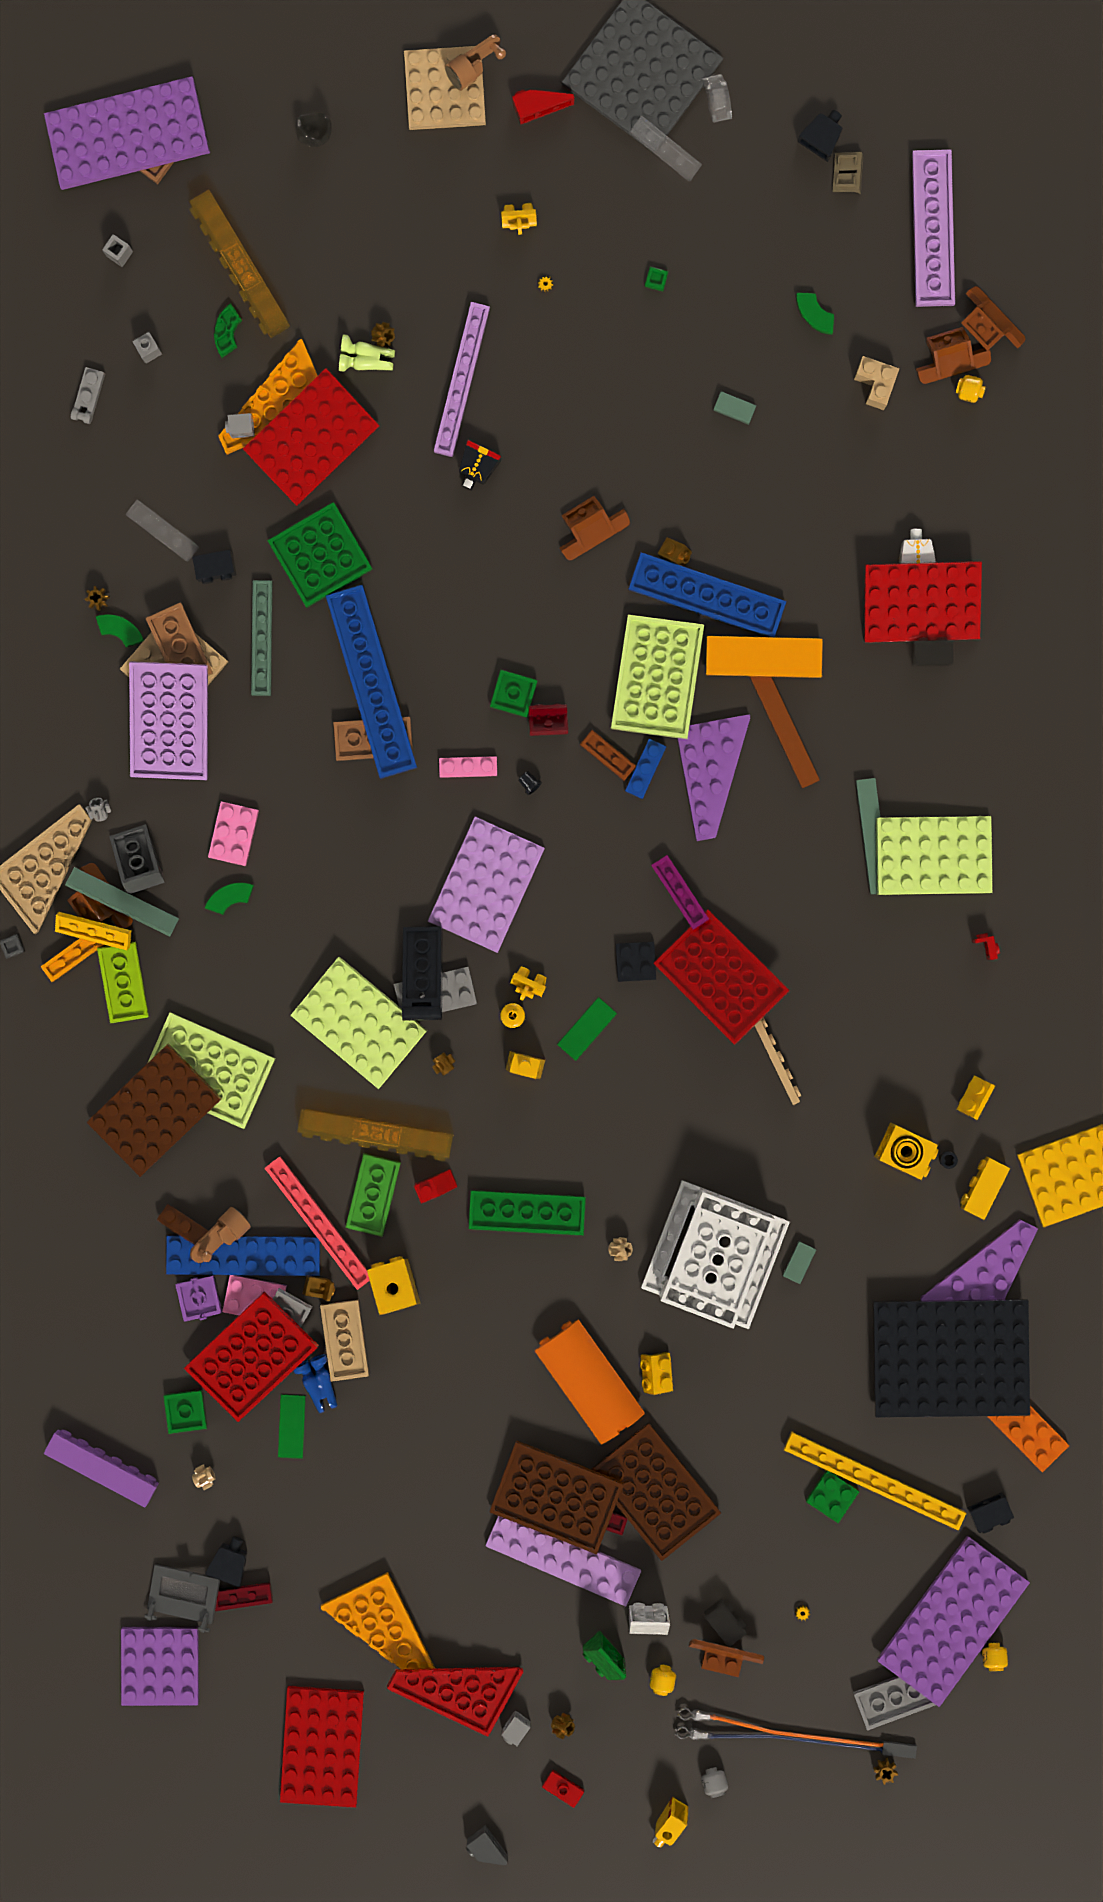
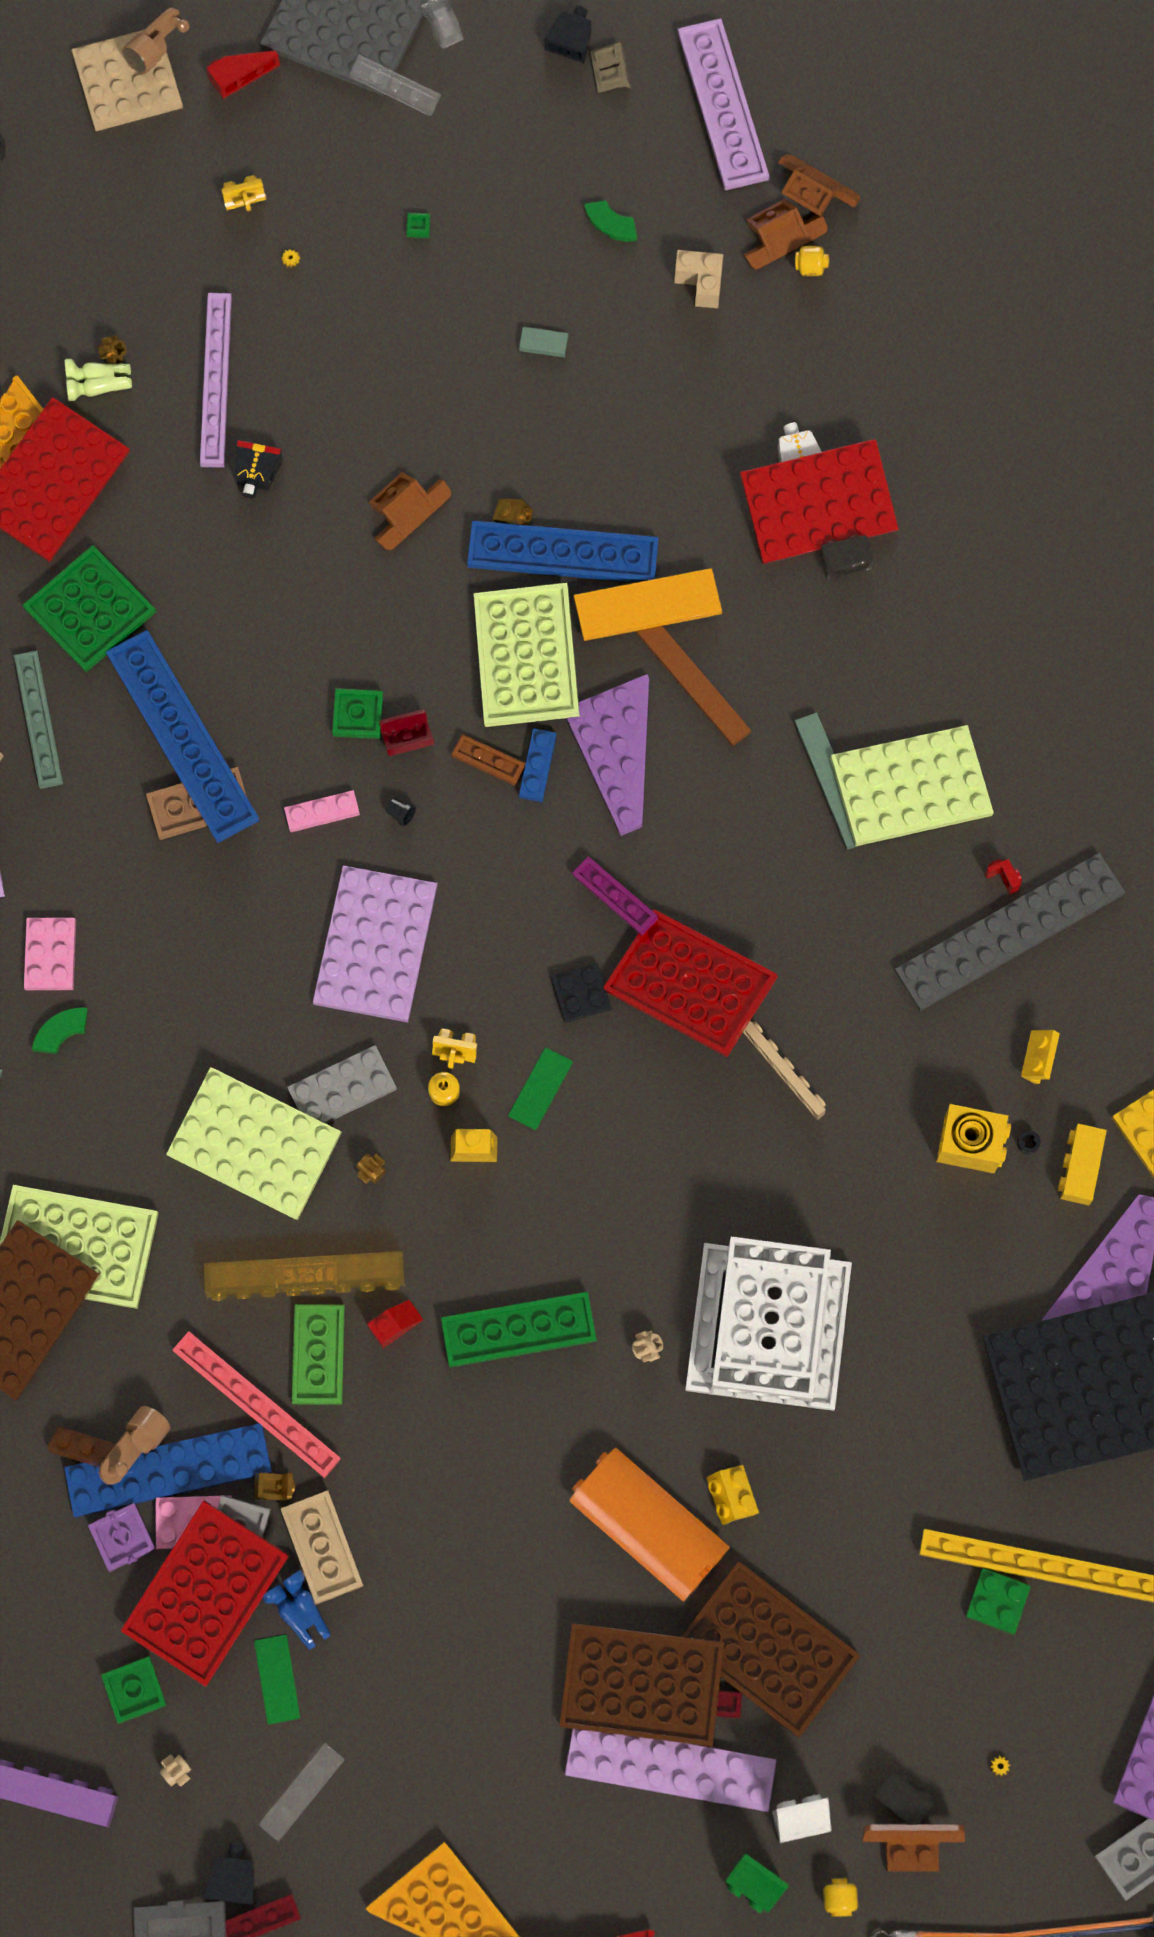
camera: 15 degrees left, 15 degrees down
(292, 1512) = (301, 1792): none -> clear tile
(381, 1280) = (359, 1445): yellow brick -> none
(422, 973) = (320, 1060): black hinge -> none
(799, 1262) = (877, 1312): sand green tile -> none
(979, 990) = (1009, 931): none -> dark grey plate

